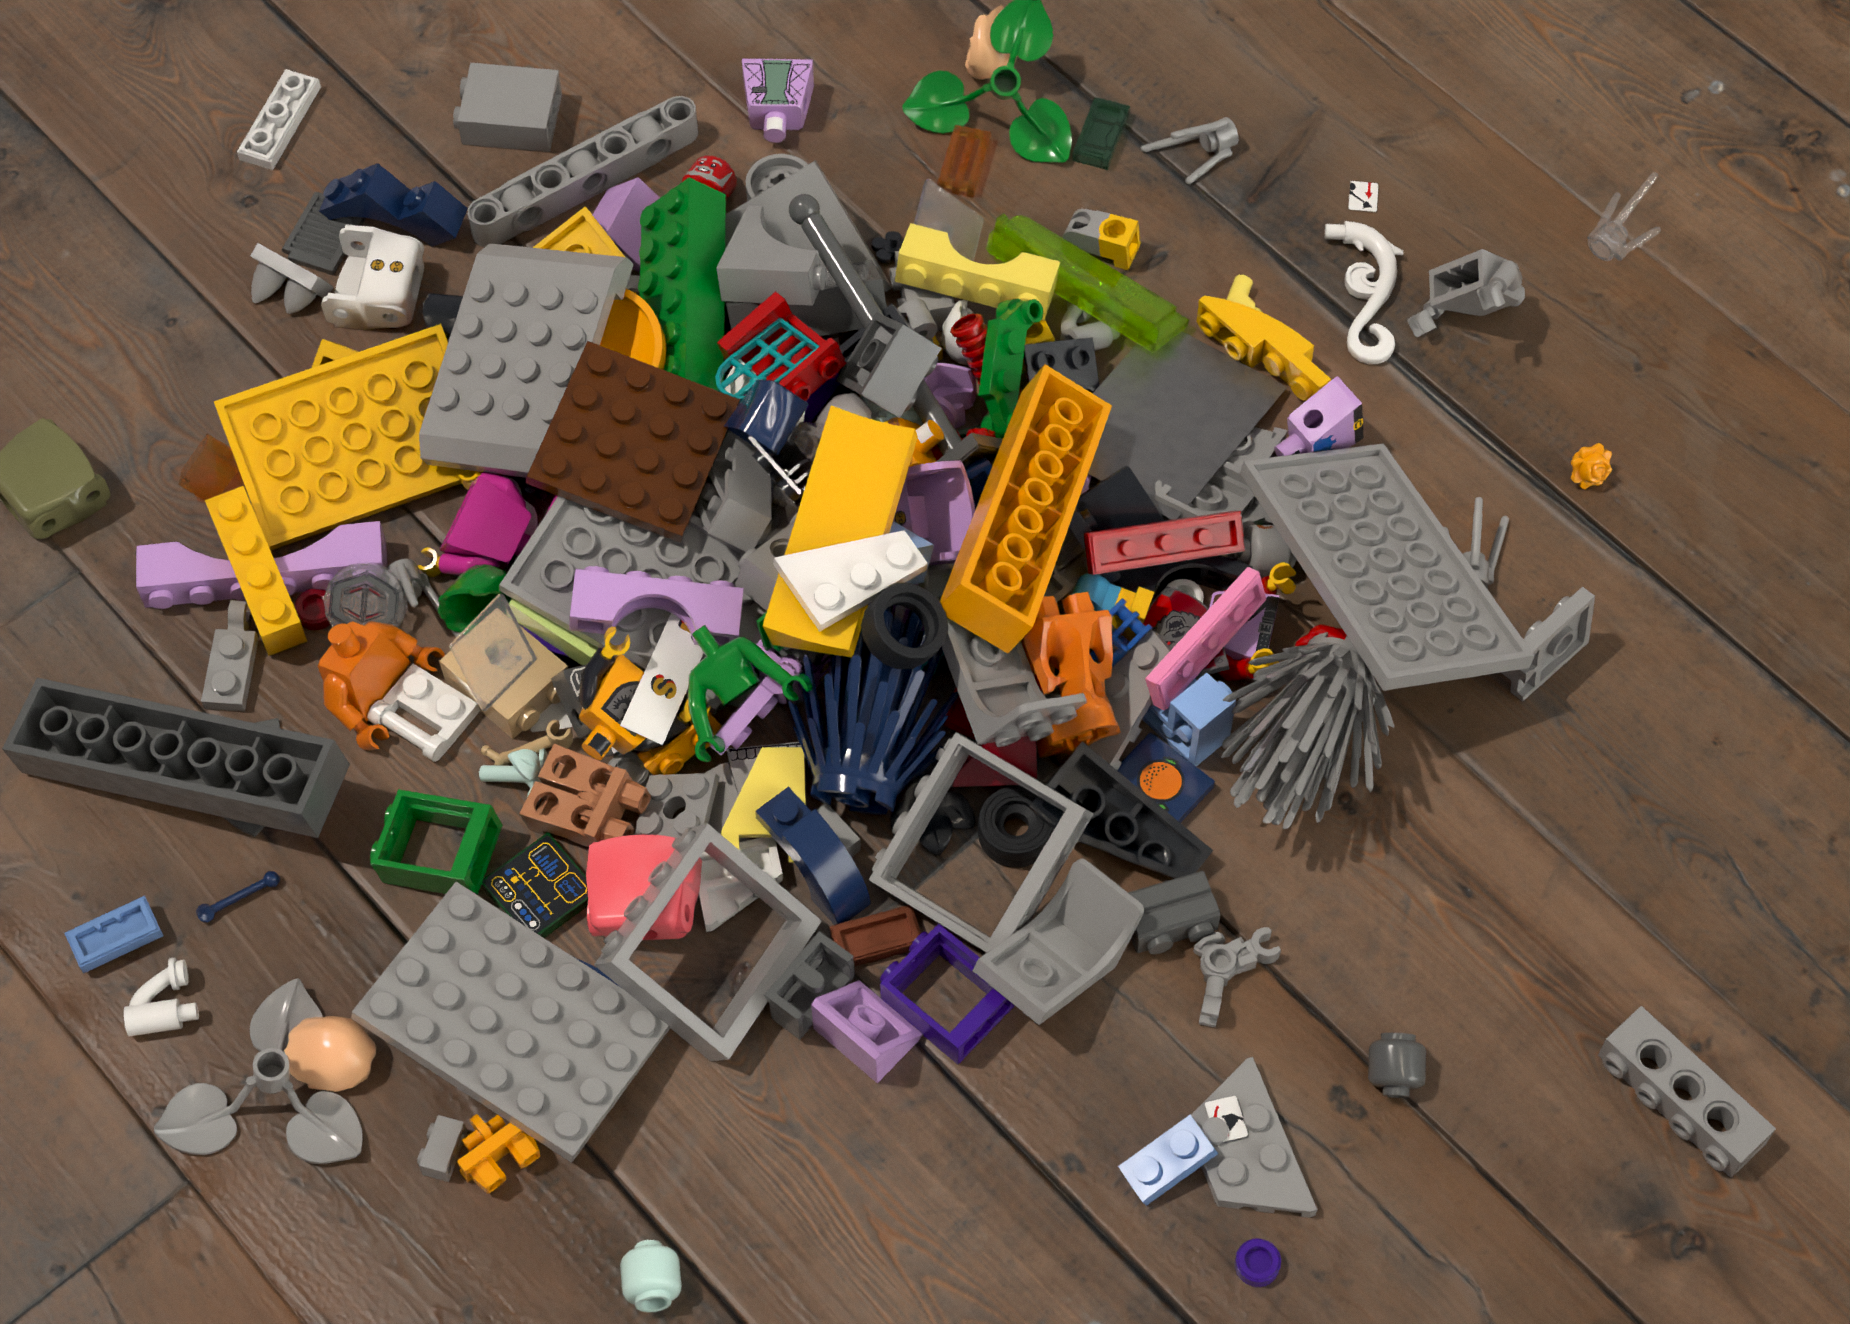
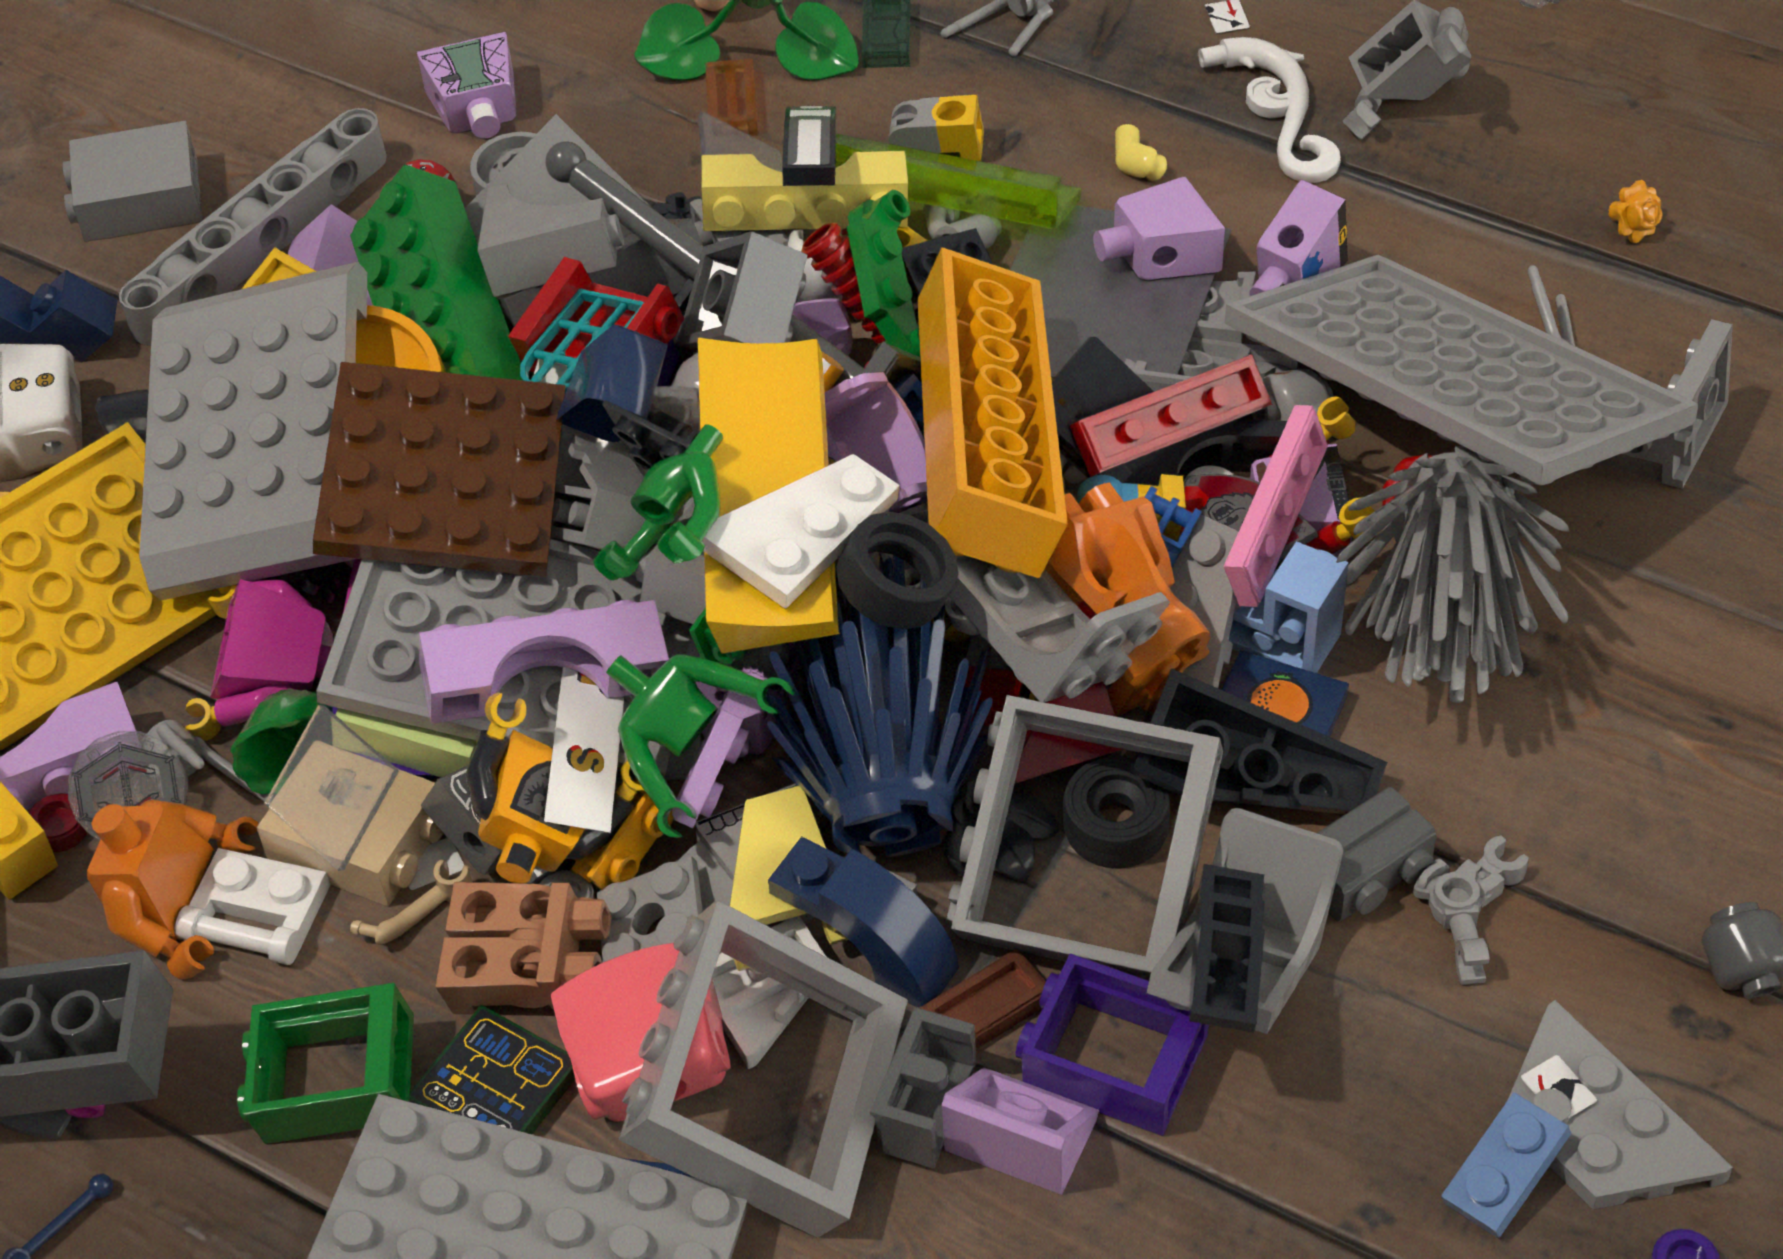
camera: 15 degrees left, 10 degrees down
(524, 769) = (428, 934): light aqua plant -> none
(765, 520) = (658, 501): none -> green piece
(990, 238) = (809, 146): none -> slope
(1034, 959) = (1227, 949): none -> black slope
(1228, 381) = (1164, 233): none -> lavender torso
(1257, 338) = (1219, 182): yellow slope -> none

